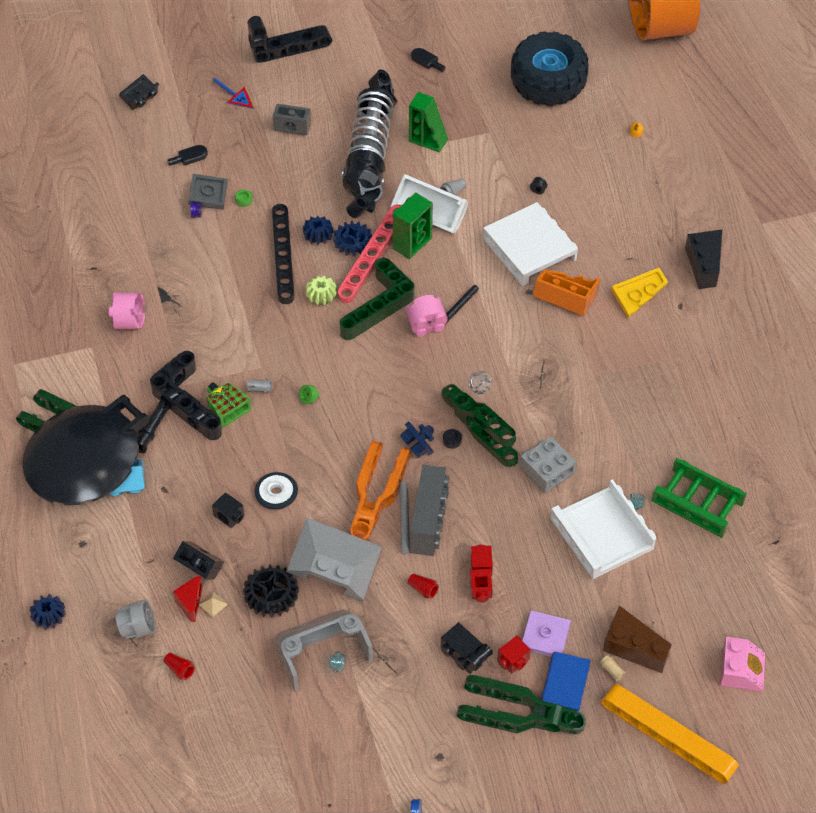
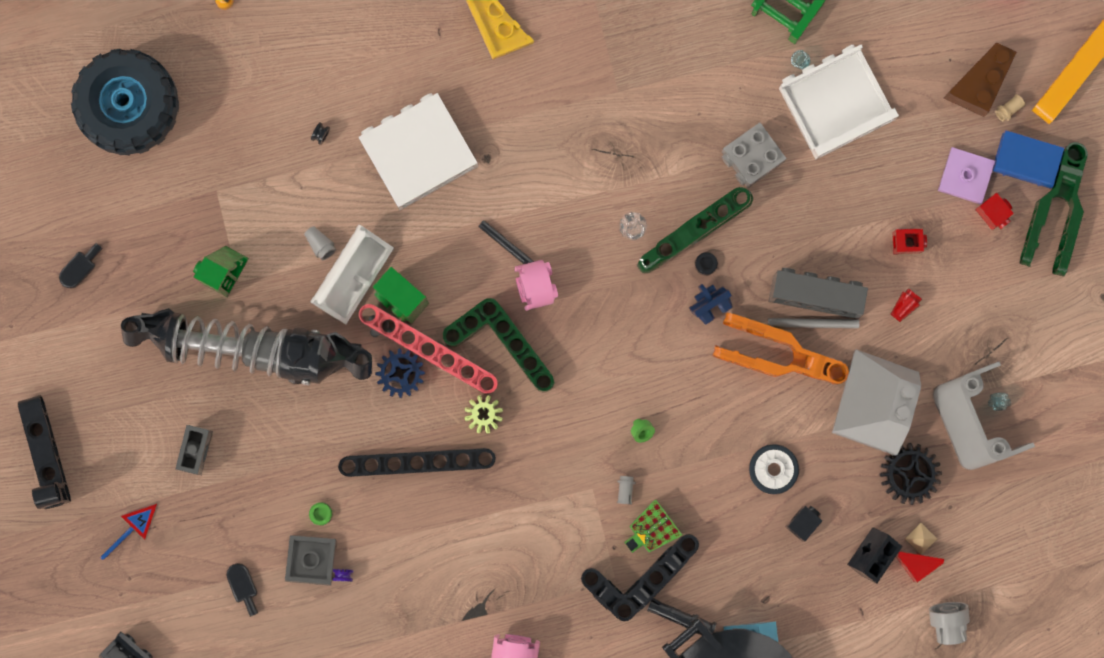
camera: 90 degrees left, 30 degrees up
(179, 666) = (1000, 573): red cone -> none
(317, 230) = (377, 420): dark blue gear -> none
(464, 648) = (989, 261): black hinge -> none
(481, 557) = (876, 239): red brick -> none
(566, 291) = (501, 111): orange wedge -> none

